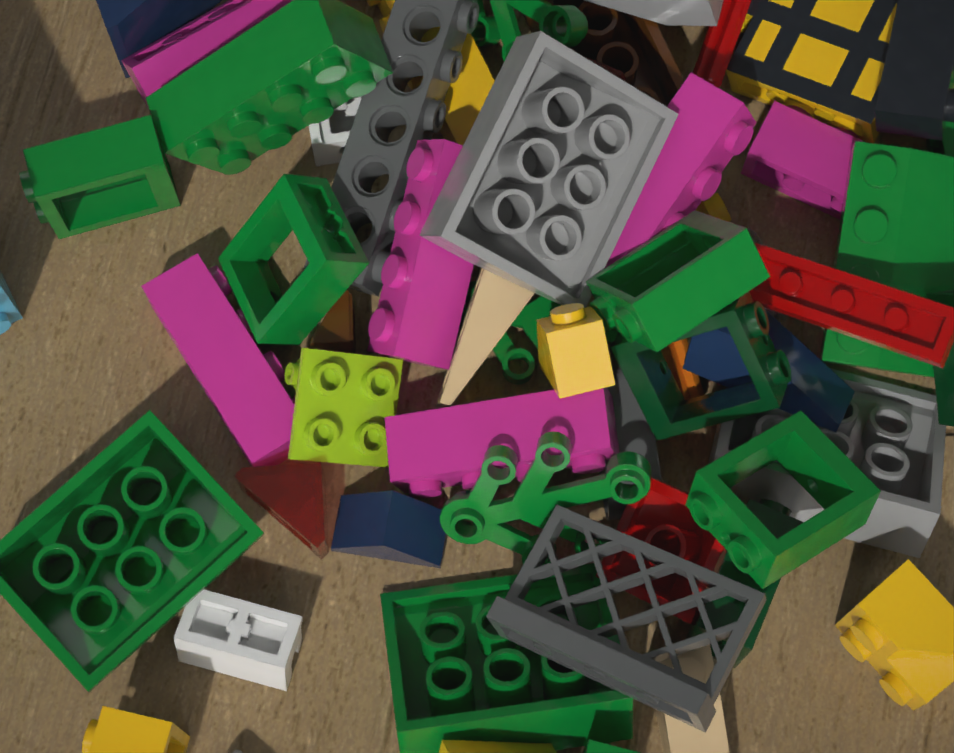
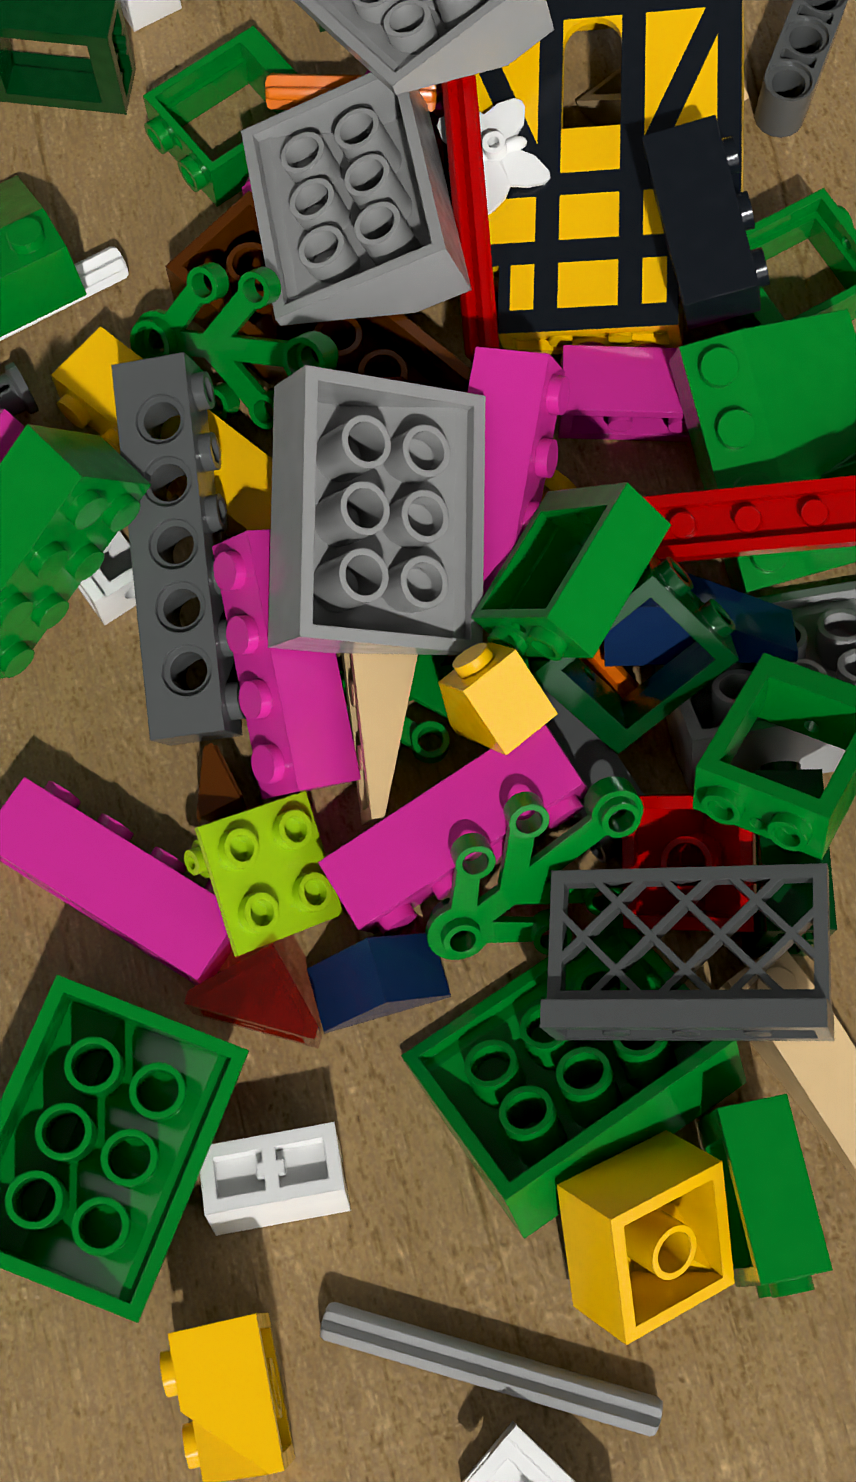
camera: 25 degrees left, 0 degrees up
(334, 259) = (165, 696): green window -> none

